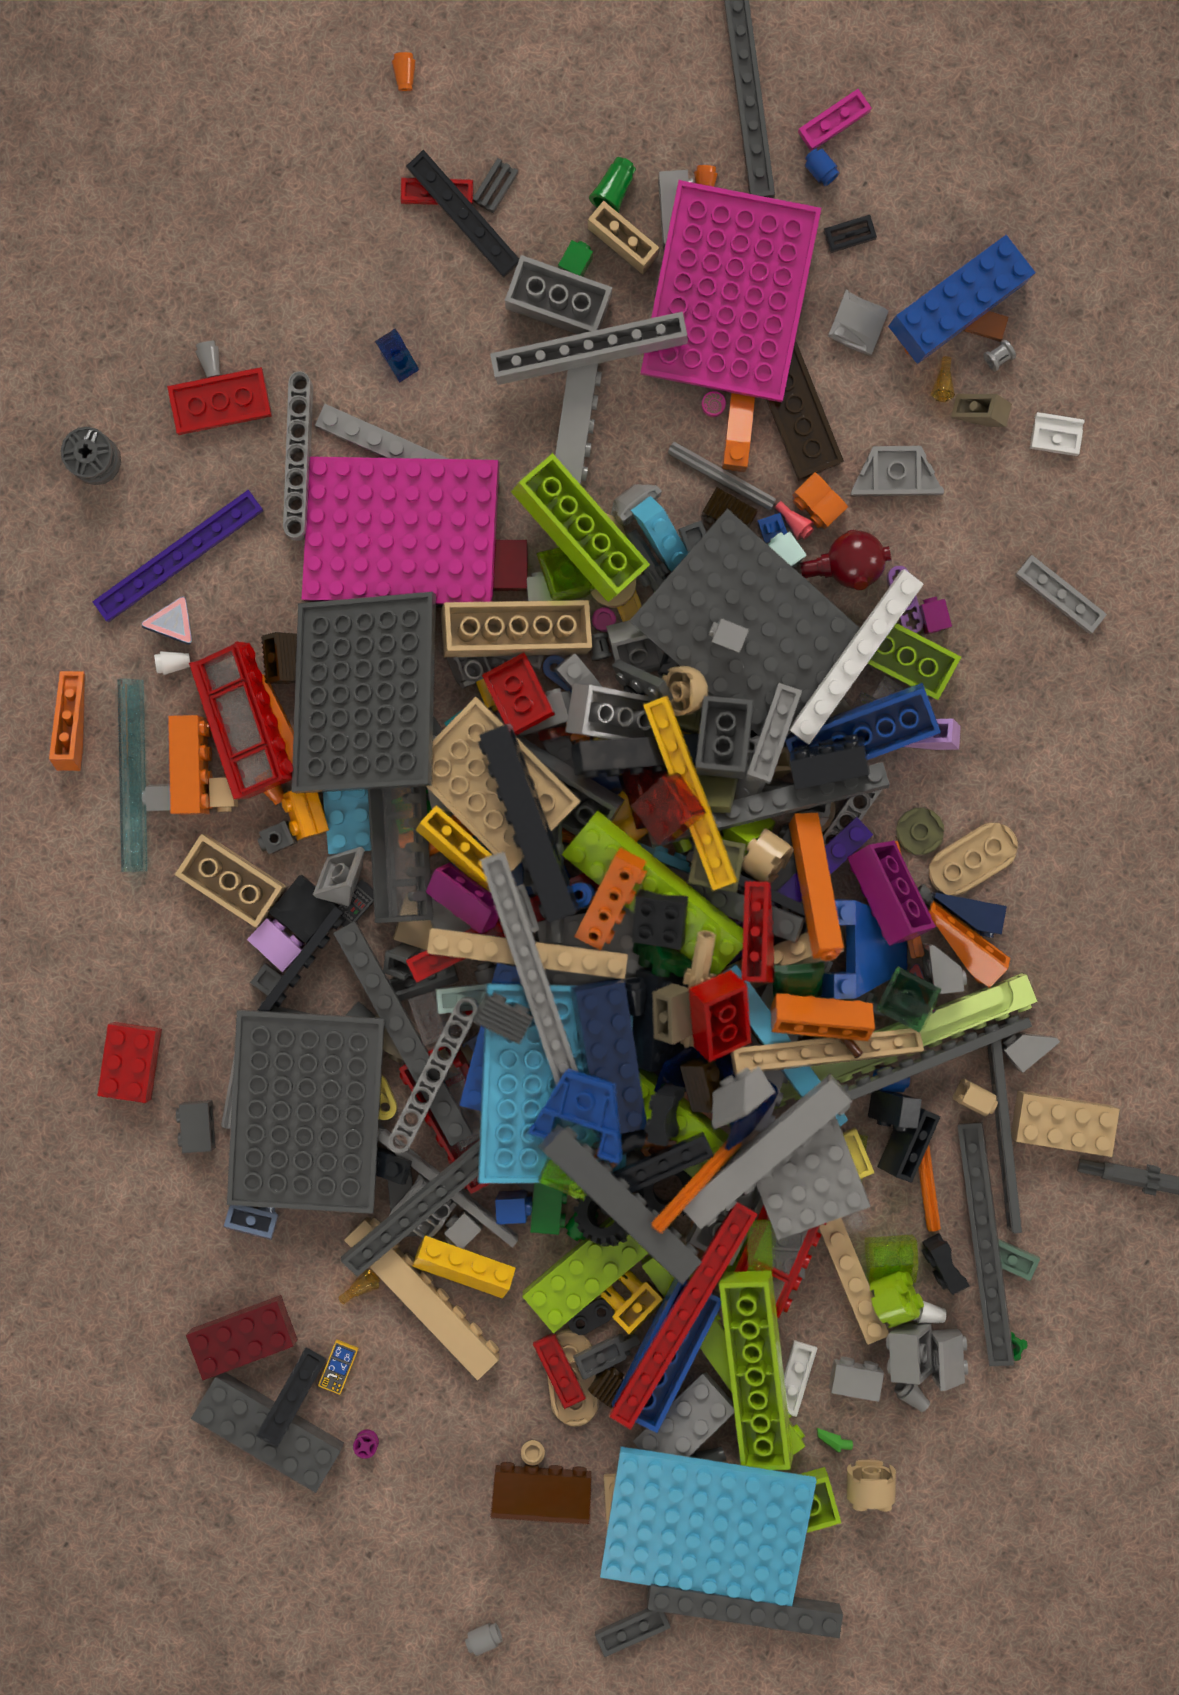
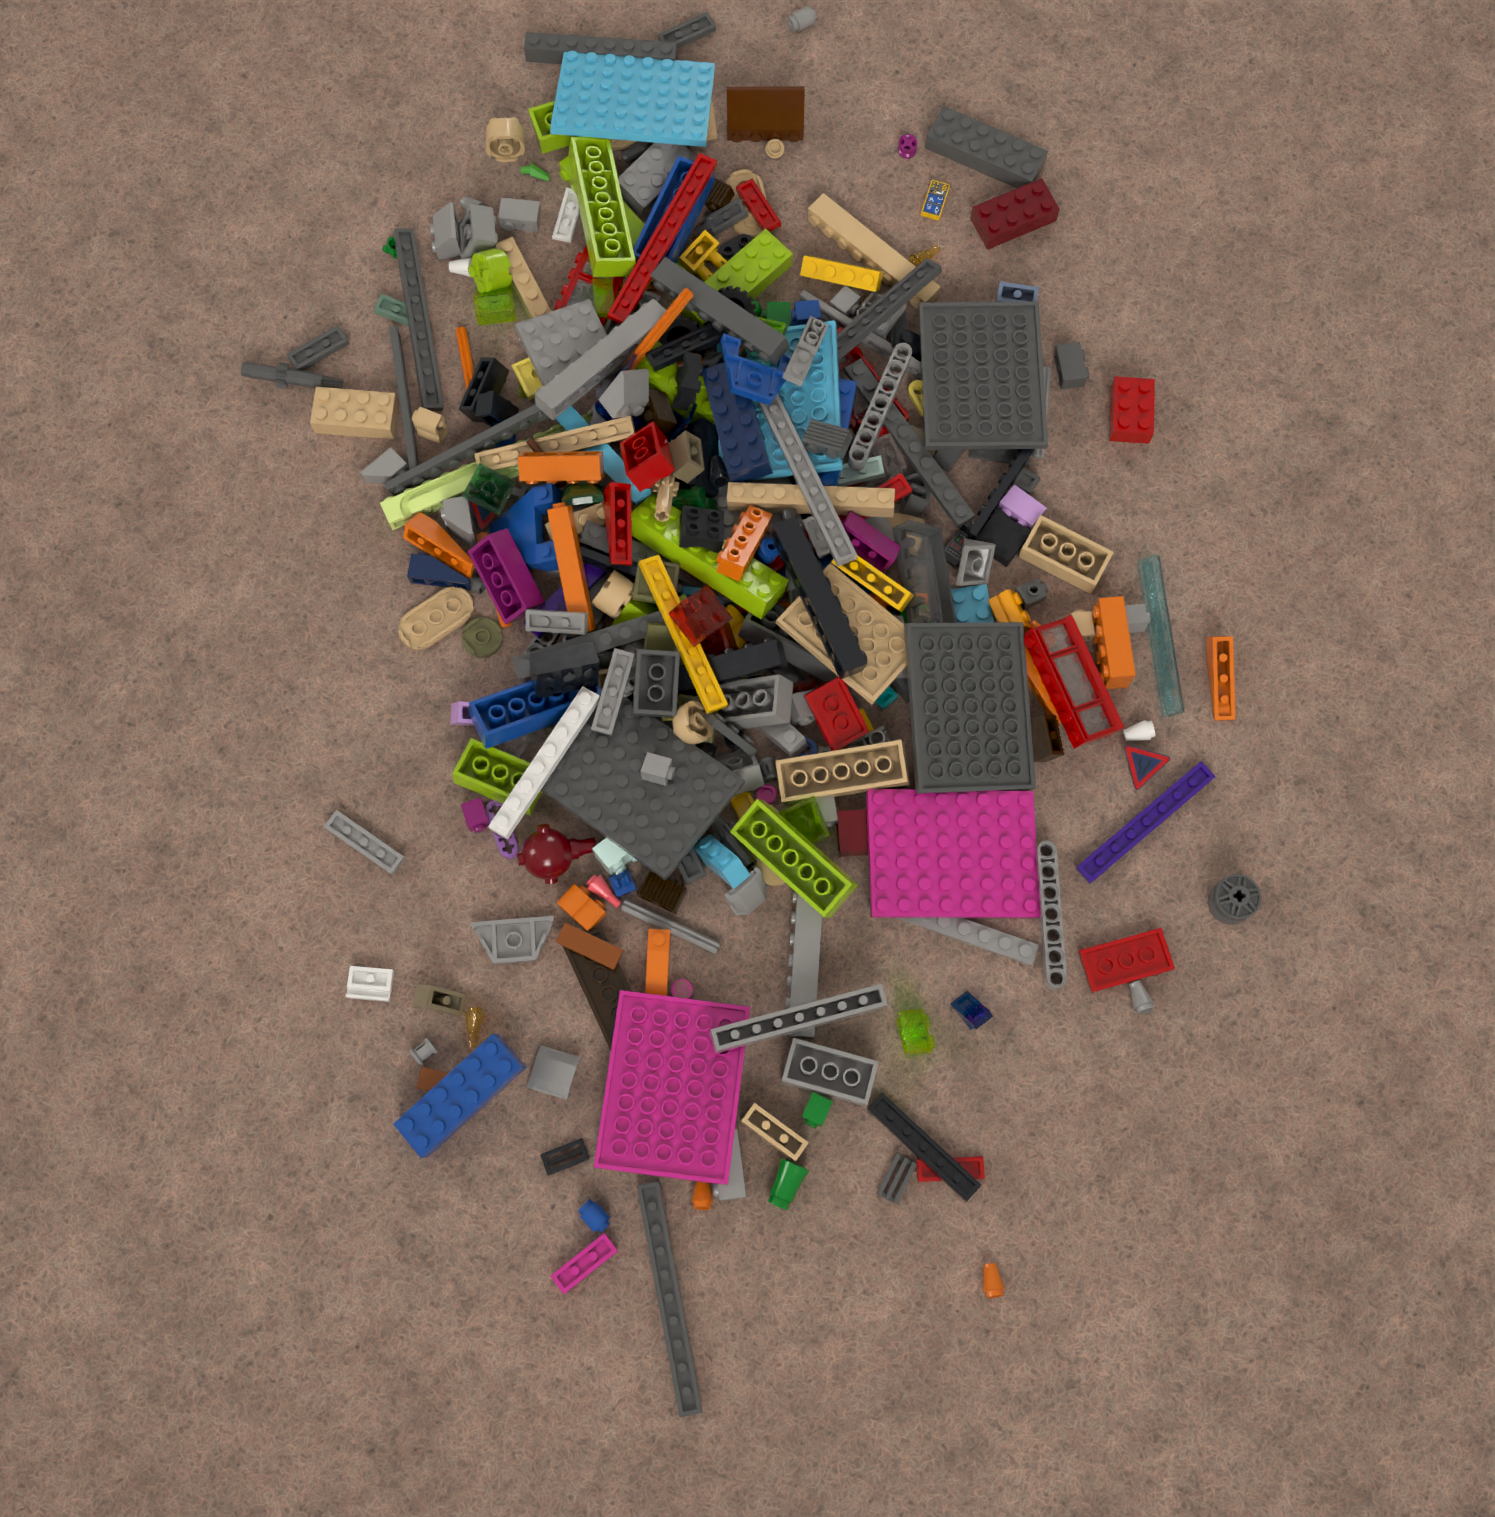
camera: 170 degrees right, 15 degrees down
(291, 1397) = (970, 171): black tile -> none
(462, 333) = (914, 1033): none -> clear neon green slope
(520, 1137) = (805, 351): none -> light grey slope
(813, 454) = (589, 946): none -> dark orange tile
(835, 825) = (557, 621): none -> light grey plate
(939, 1256) = (450, 297): black brick -> none
(1107, 1213) = (318, 349): none -> dark grey plate

